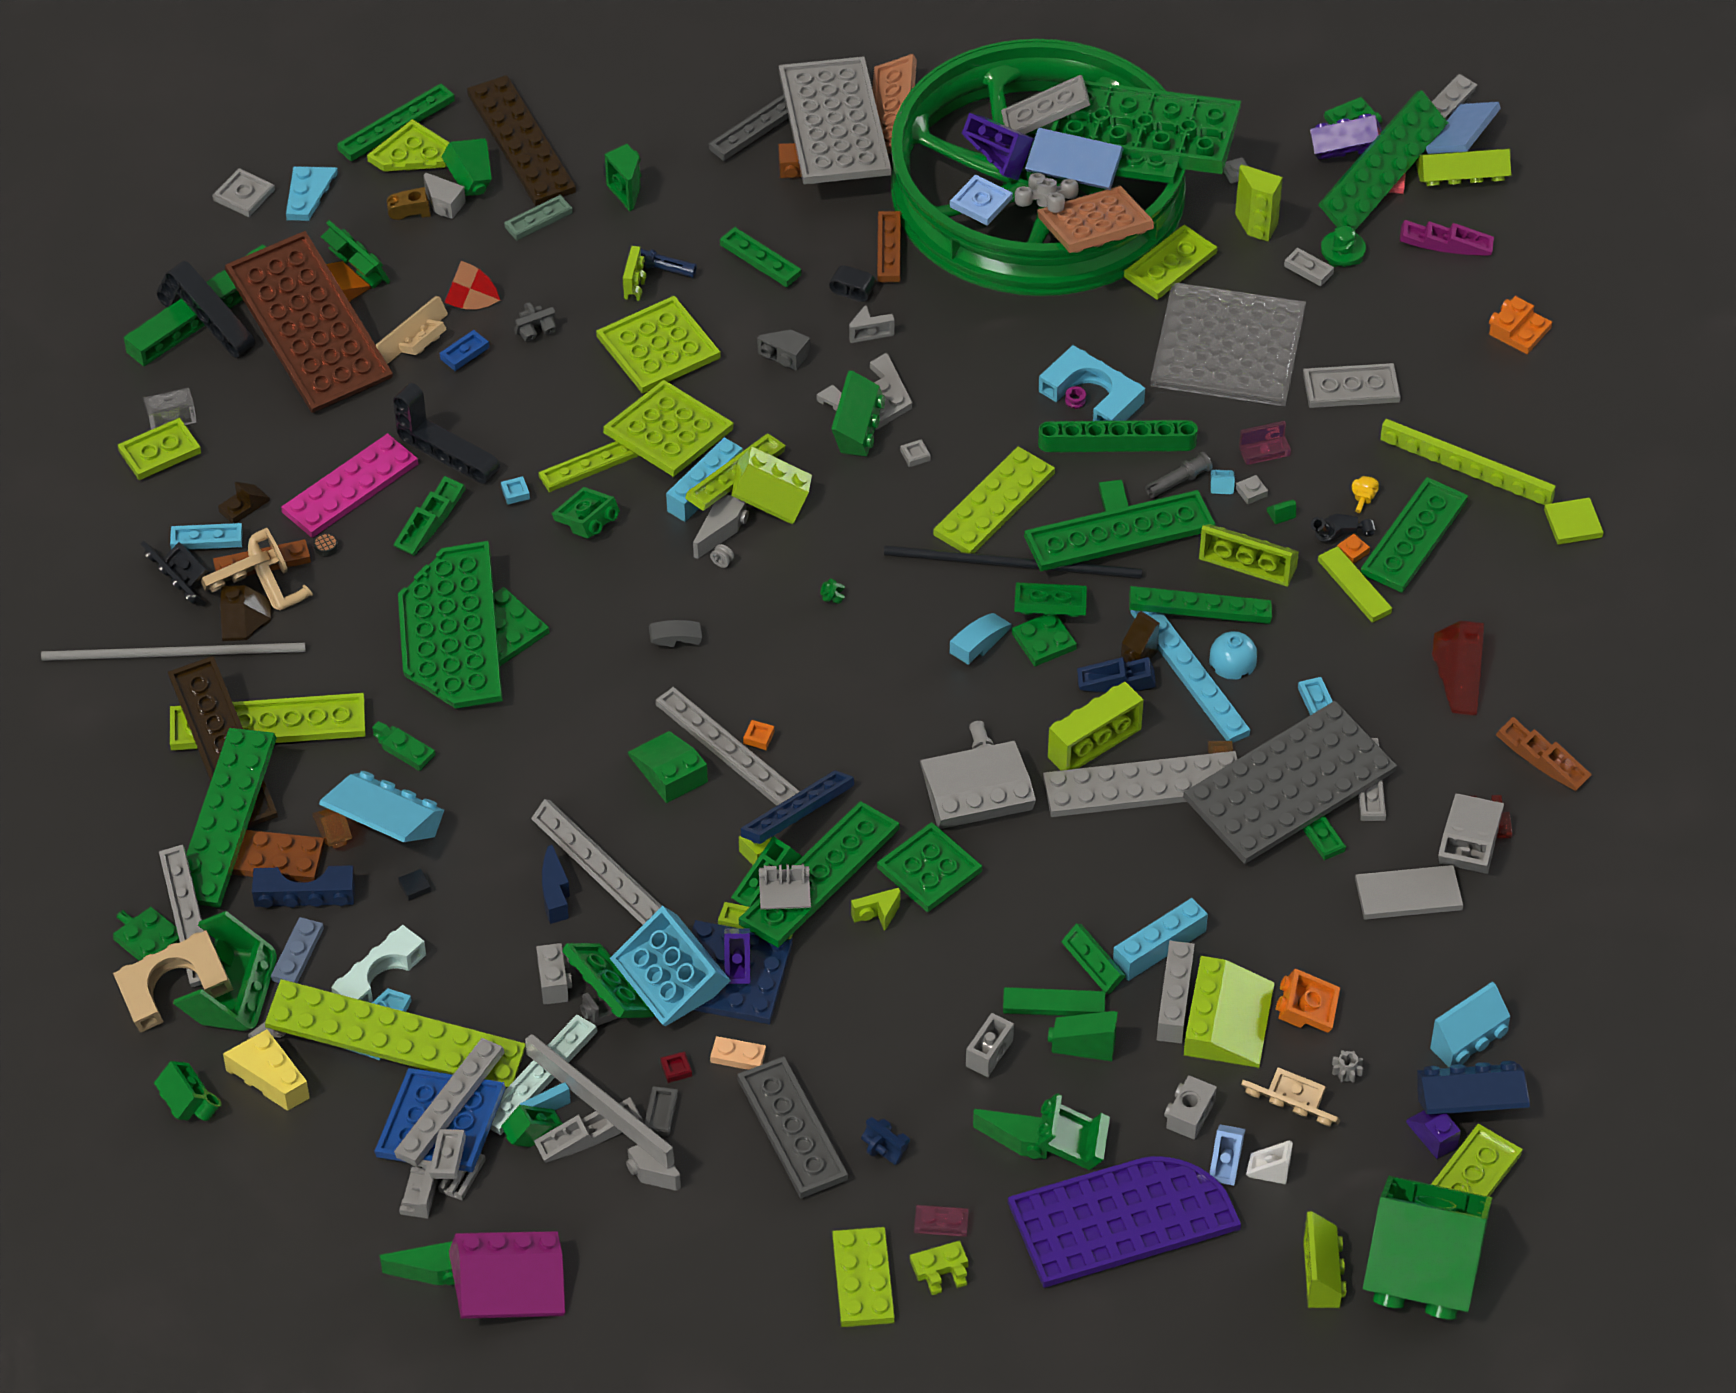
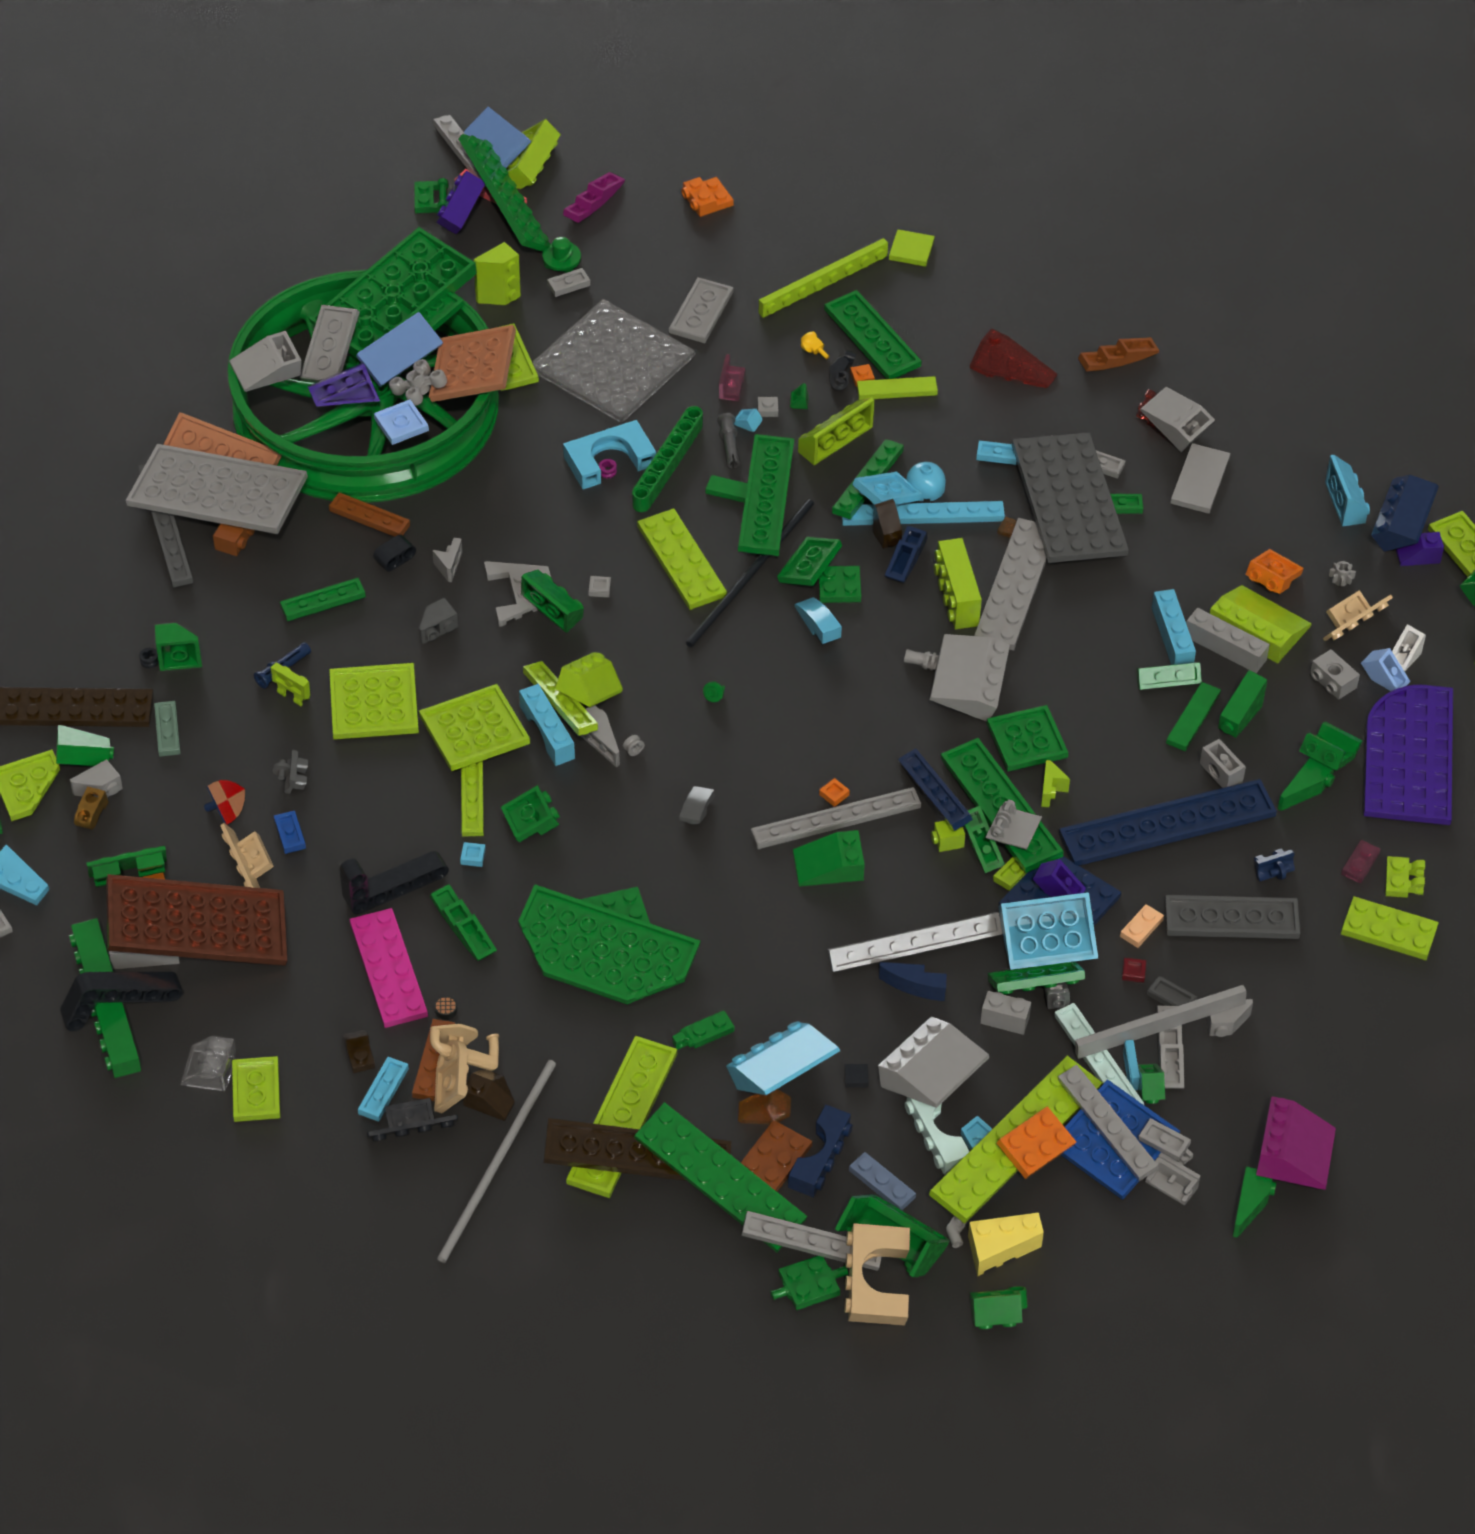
camera: 65 degrees left, 0 degrees up
(389, 1048) = (1036, 1142): none -> orange plate
(445, 929) = (931, 1063): none -> light grey slope
(889, 1028) = (1167, 822): none -> dark blue plate
(987, 73) = (267, 362): none -> light grey slope
(1186, 620) = (886, 487): none -> medium azure plate

